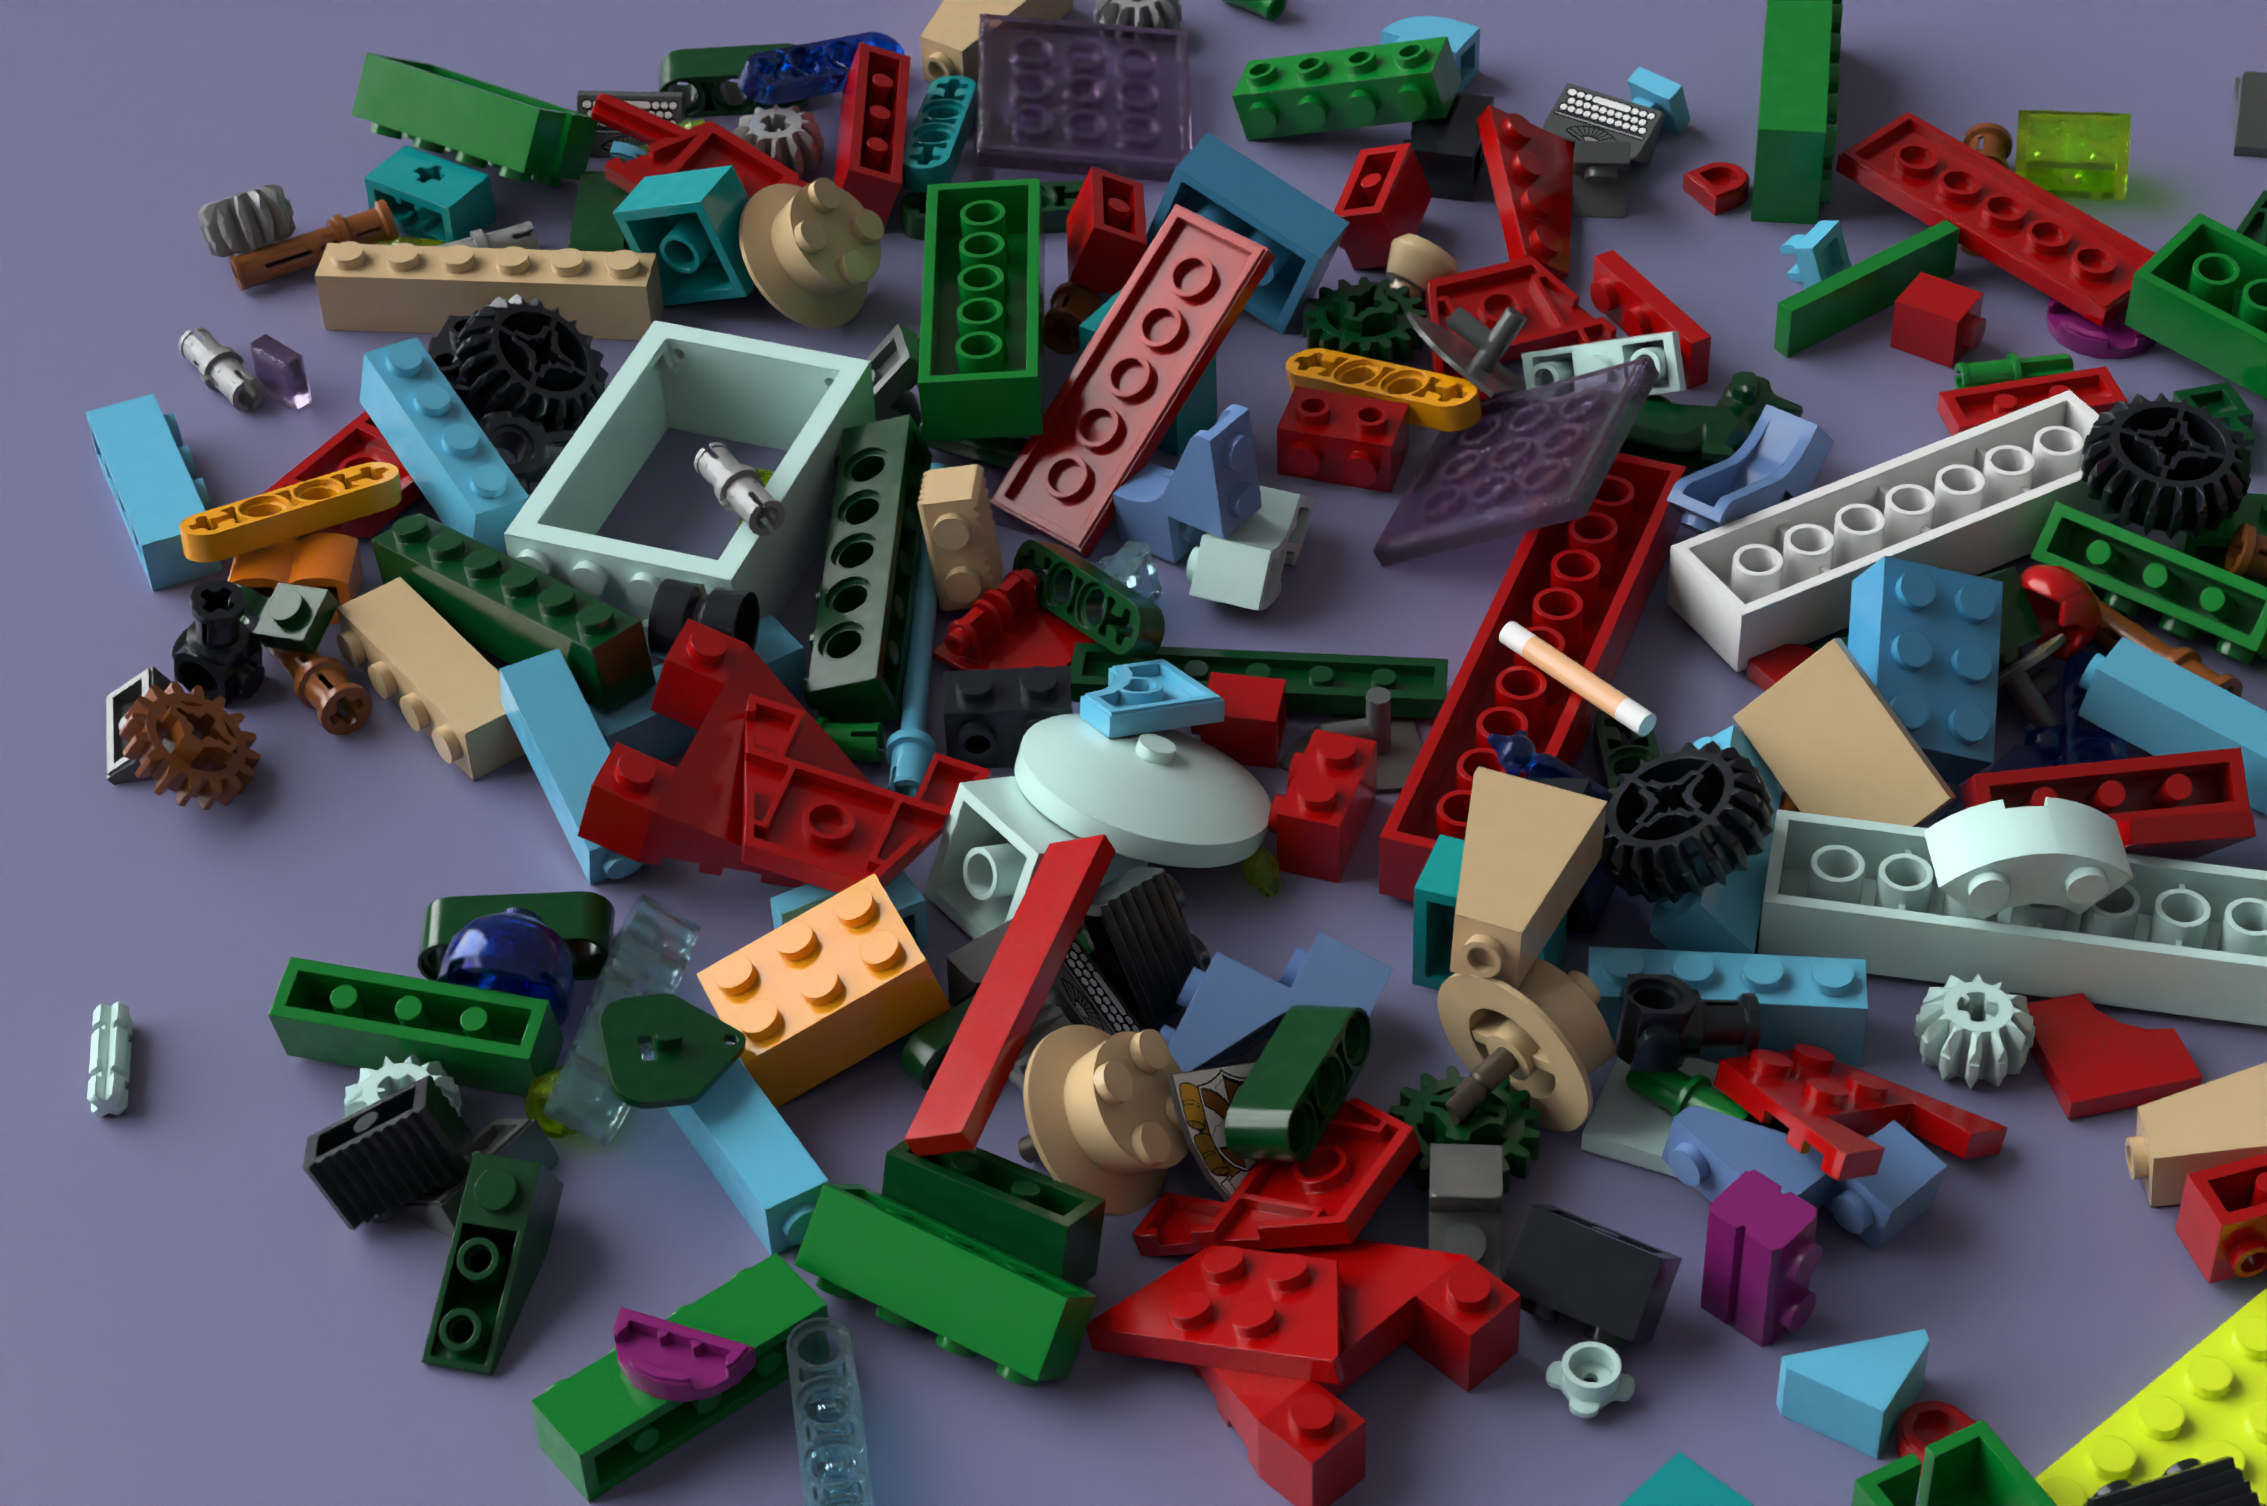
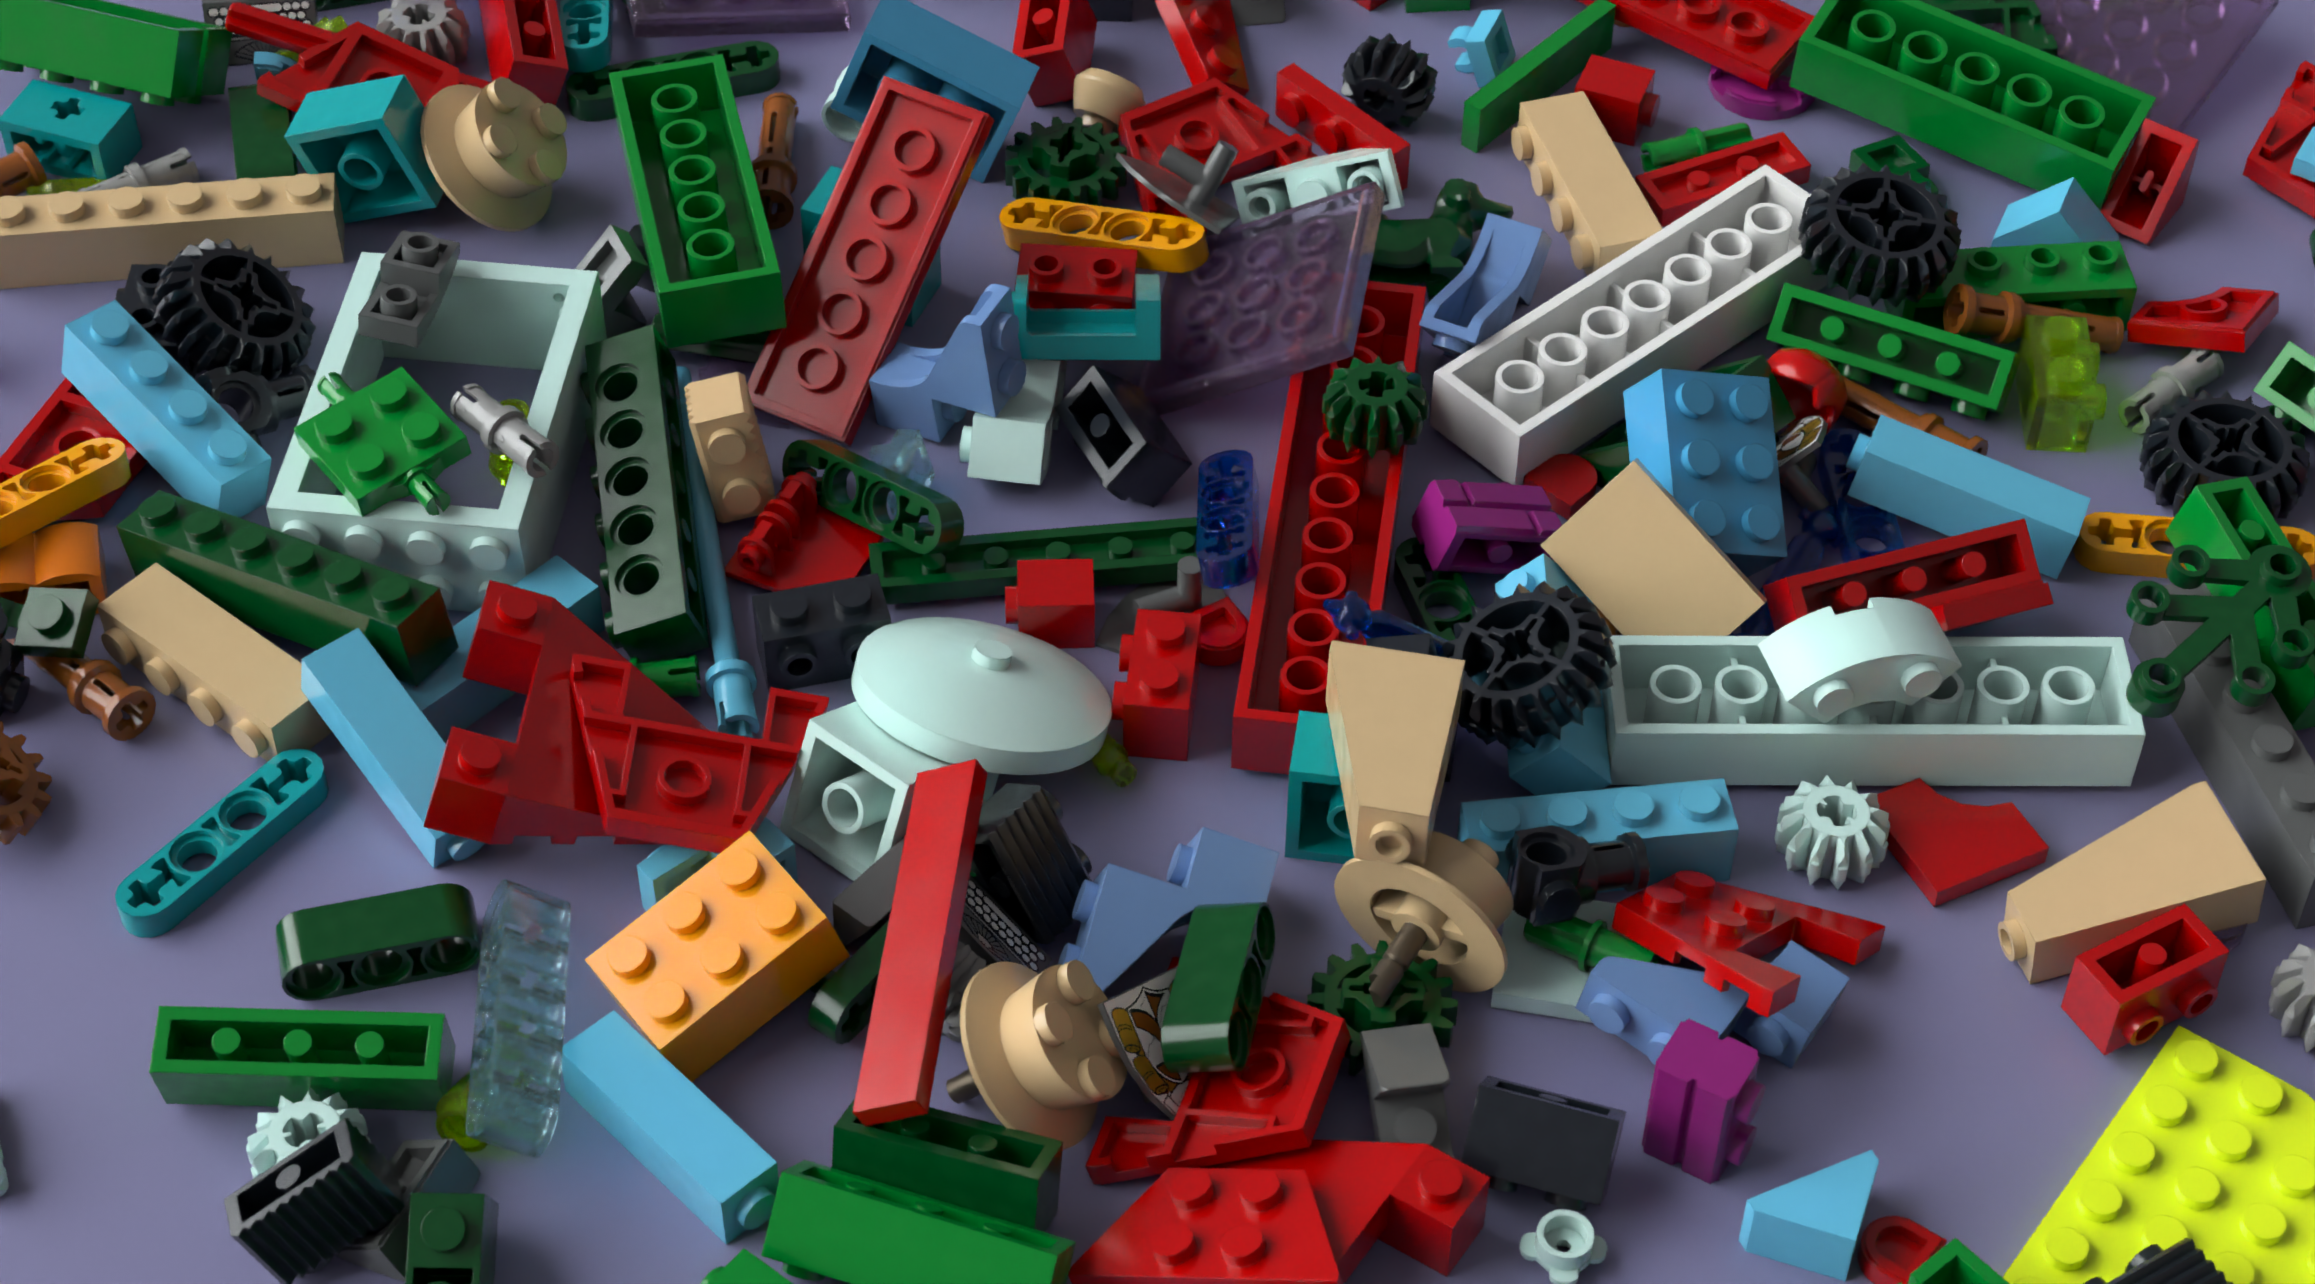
camera: 15 degrees left, 5 degrees up
(465, 797) = (215, 836): none -> teal beam
(512, 956) = (389, 971): clear blue cylinder -> none
(624, 486) = (383, 442): none -> green plate
(685, 1046) = (598, 1040): dark green piece -> none
(690, 355) = (410, 289): none -> dark grey slope
(723, 609) = (477, 560): black wheel -> none
(1106, 232) = (795, 101): red brick -> none
(1149, 699) = (969, 600): medium azure tile -> none
(1337, 474) = (1091, 332): none -> teal panel
(1349, 574) = (1123, 437): none -> black brick
(1394, 764) = (1222, 633): none -> red tile
(1427, 658) = (1228, 519): none -> clear blue beam
(1577, 678) = (1383, 524): light nougat bar -> none
(1596, 567) = (1375, 406): none -> dark green gear
(1688, 692) = (1483, 525): none -> magenta brick
(1707, 277) = (1389, 81): none -> black gear
(1881, 384) = (1582, 179): none -> tan brick

